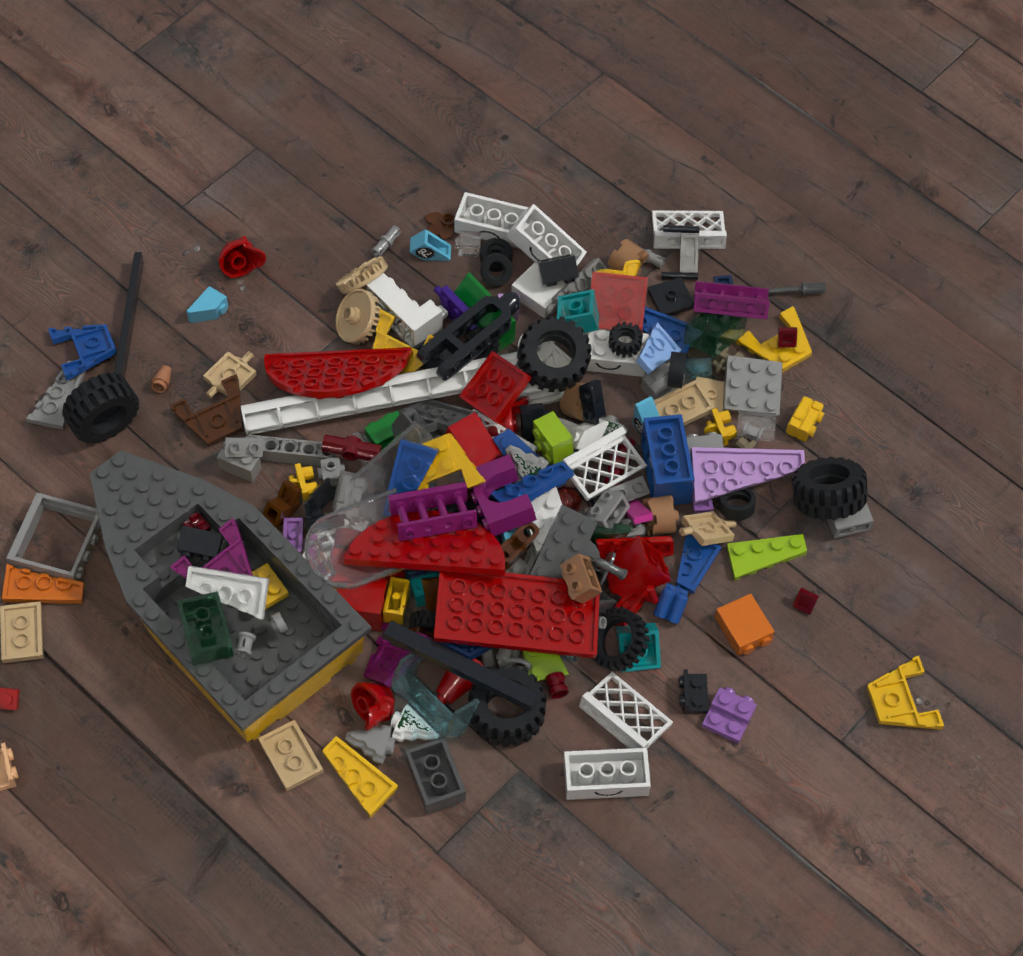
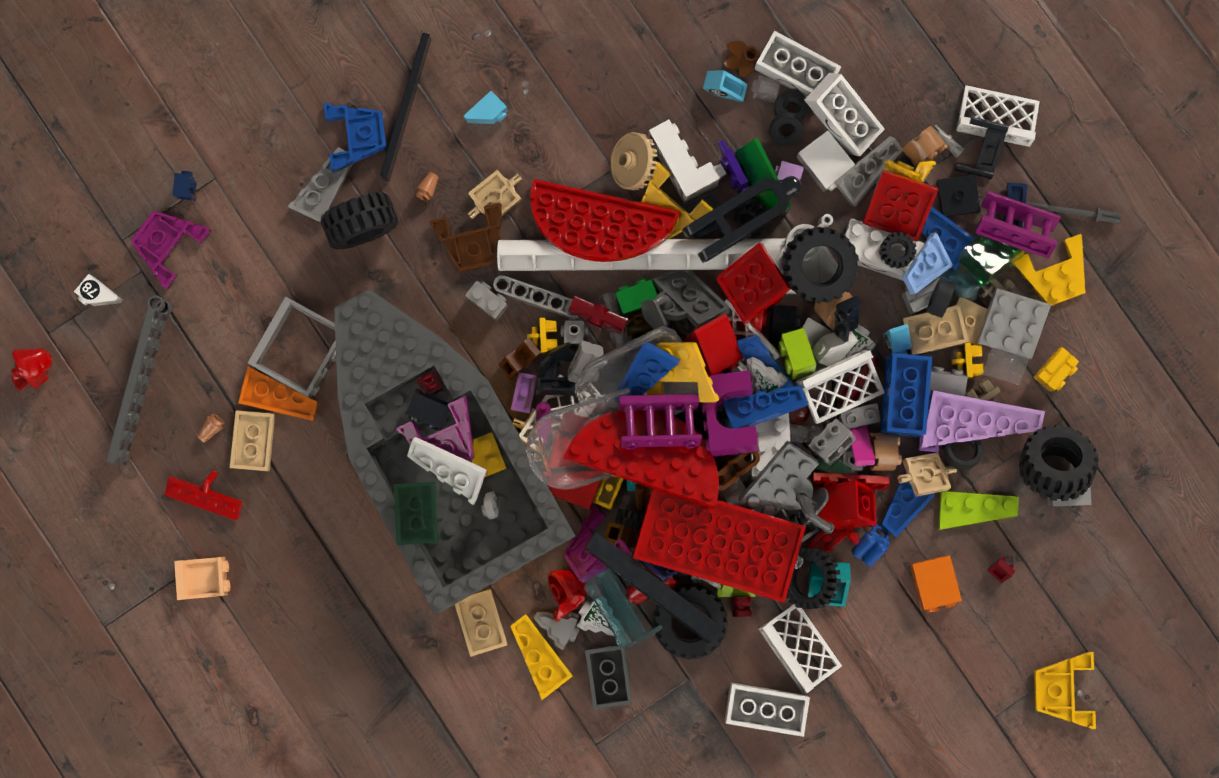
camera: 15 degrees right, 25 degrees up
(240, 258) = (527, 60): red head -> none
(243, 447) = (491, 295): light grey hinge -> none
(244, 645) = (456, 532): light grey bush -> none
(362, 276) = (648, 113): tan wheel -> none
(386, 241) = (681, 68): light grey pin -> none
(558, 269) = (849, 151): black brick -> none
(580, 308) = (856, 210): teal slope -> none
(580, 578) = (787, 526): medium nougat brick -> none
(695, 693) = (869, 641): black bracket -> none
(729, 714) = (896, 671): medium lavender plate -> none
(752, 432) = (998, 376): light grey bush -> none
(787, 337) = (1064, 275): dark red tile -> none

